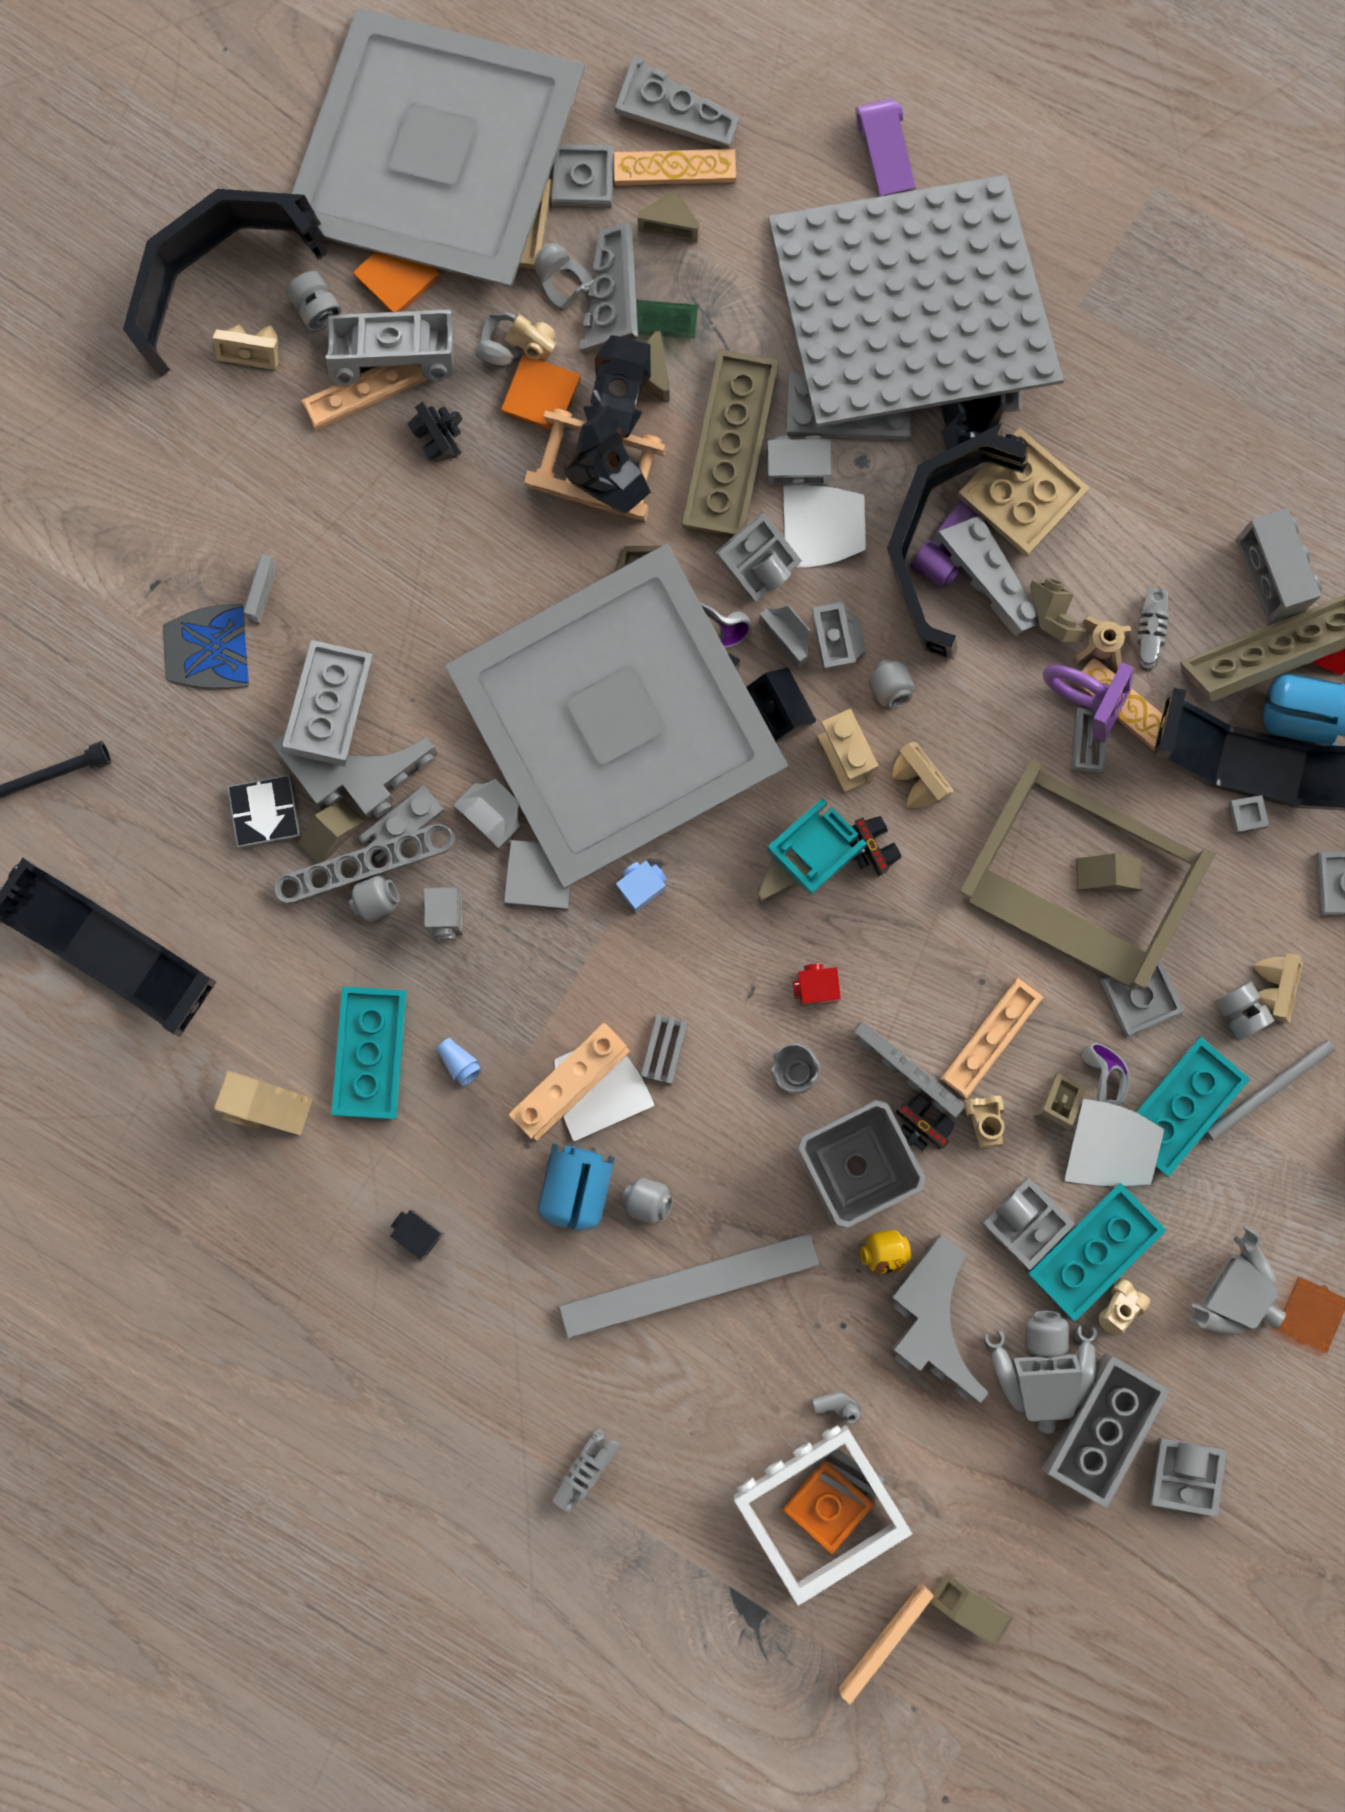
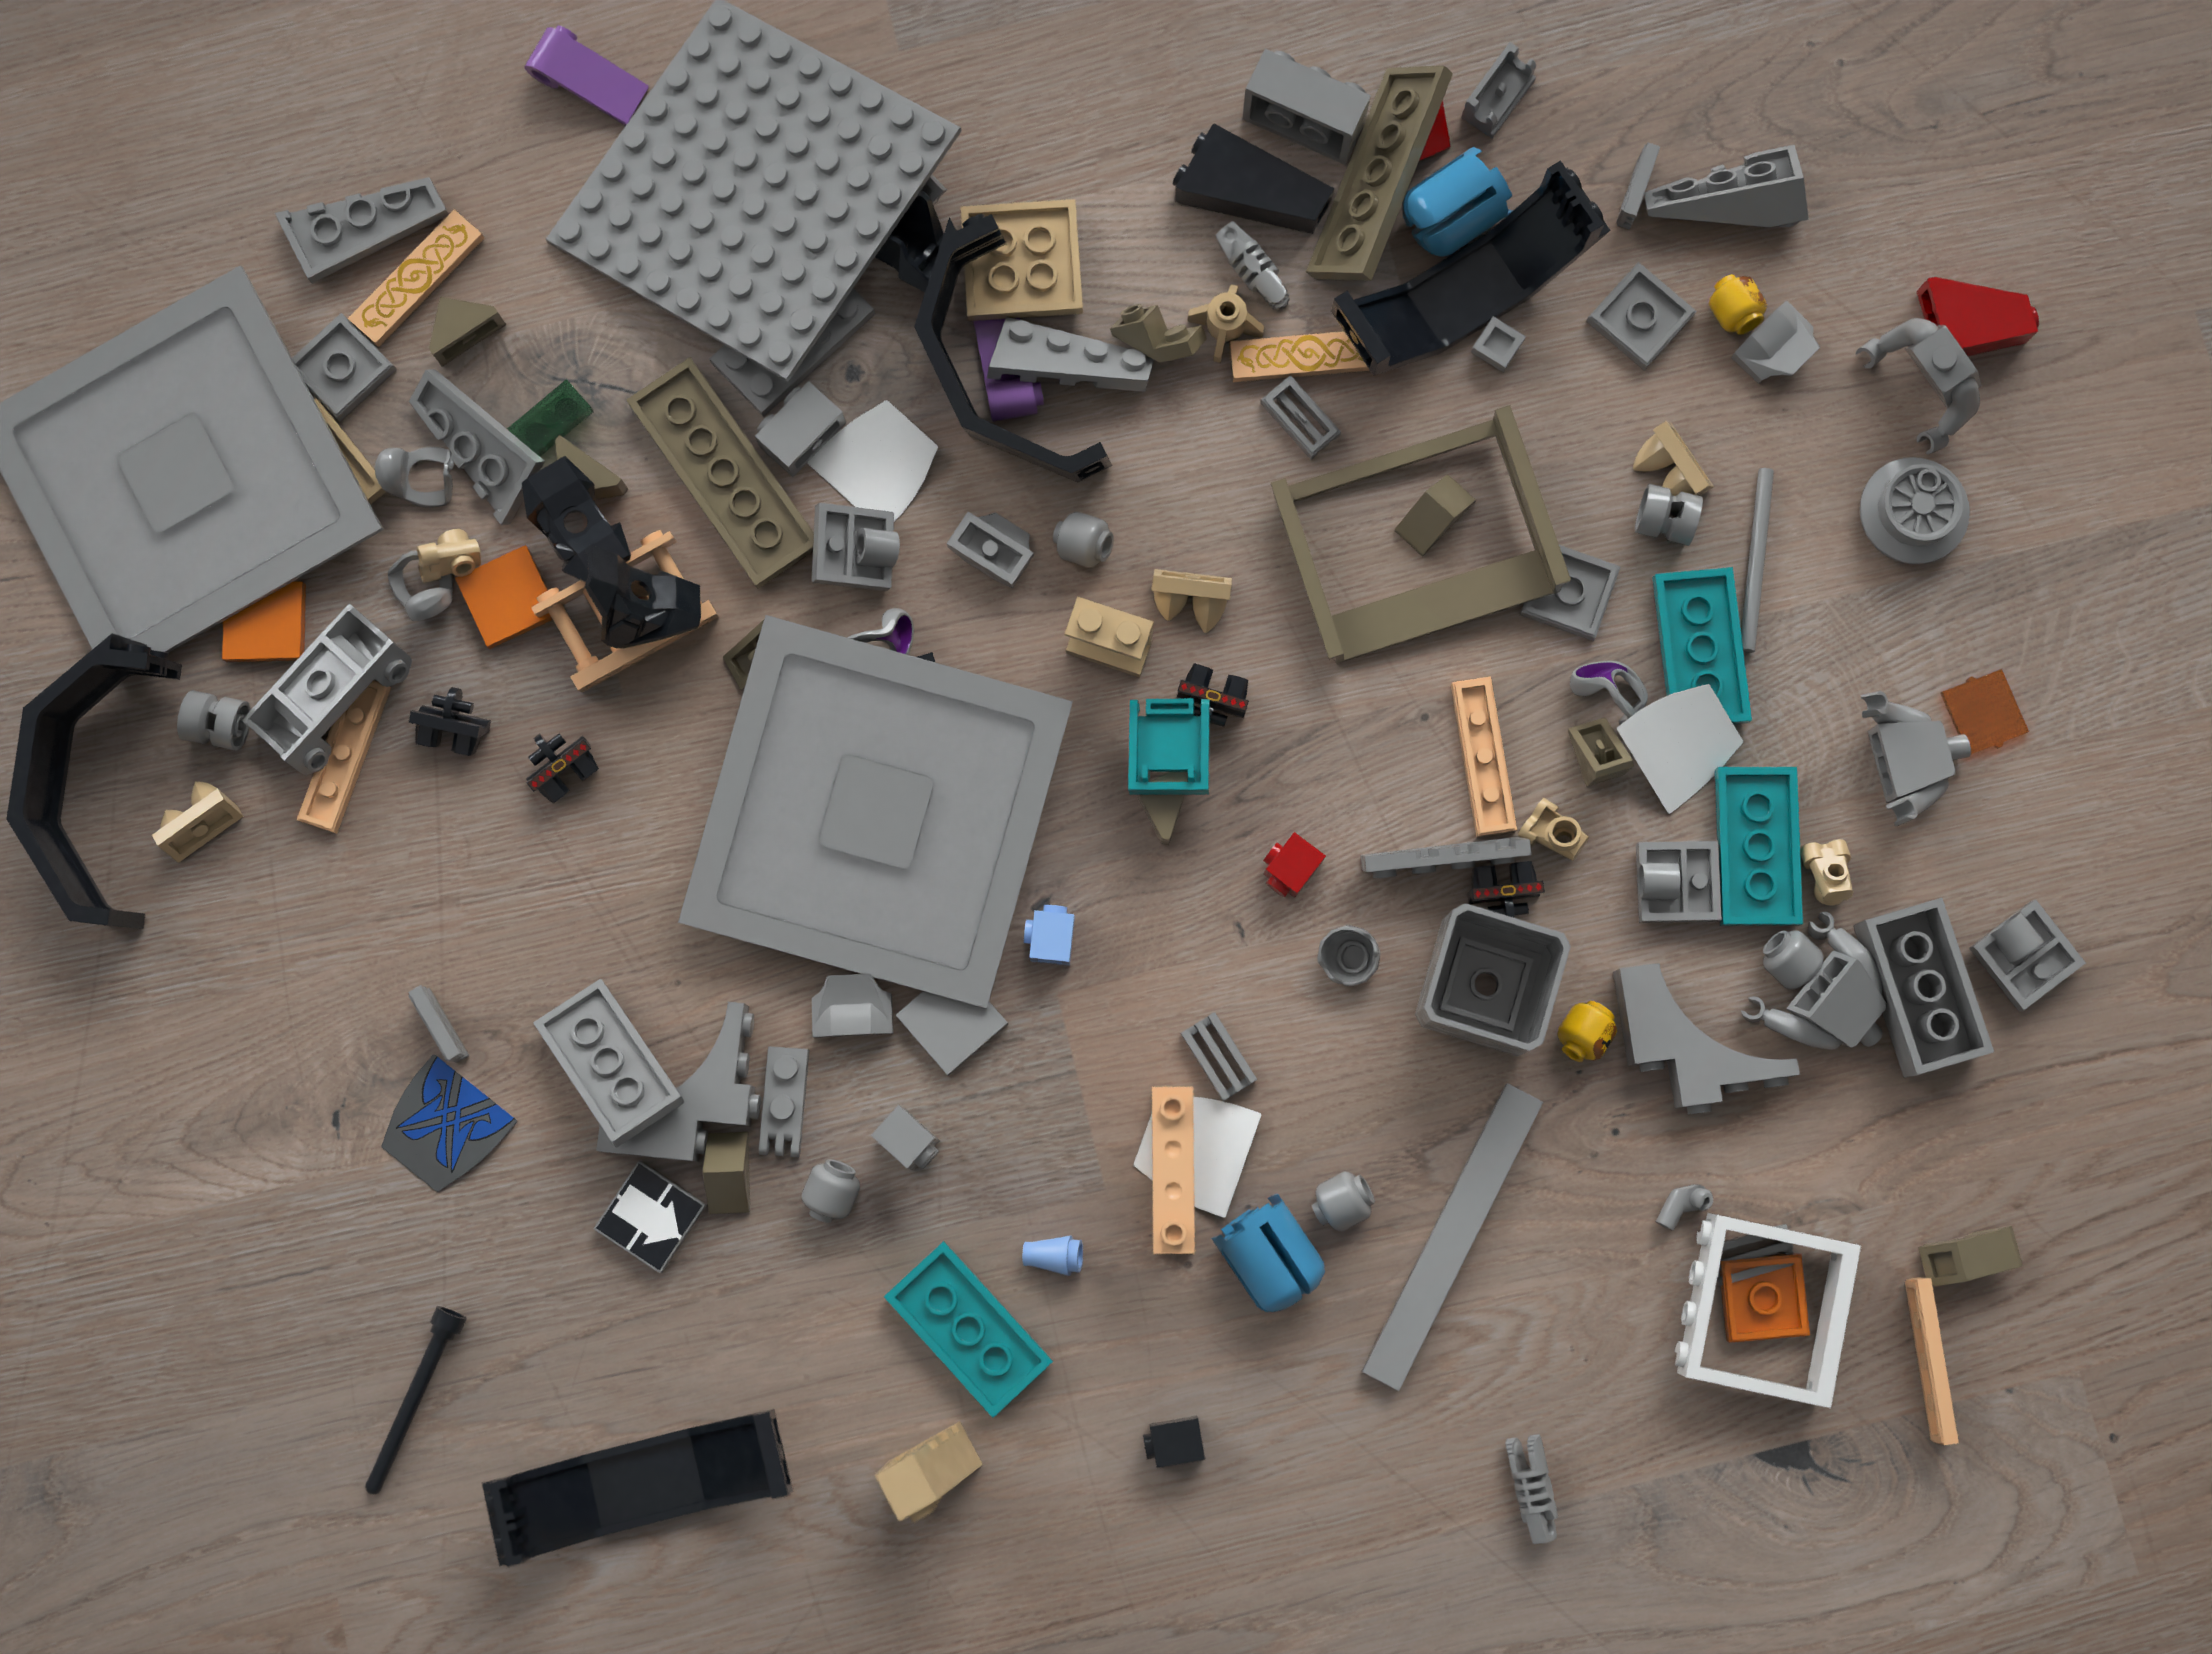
camera: 45 degrees left, 0 degrees up
(365, 867) = (795, 1172): light grey beam -> none
(457, 514) = (546, 777): none -> black hips
(780, 703) = (1005, 653): black panel -> none
(788, 633) = (948, 587): light grey slope -> none
(1107, 699) = (1282, 369): medium lavender tile -> none
(1200, 578) = (1250, 184): none -> black slope

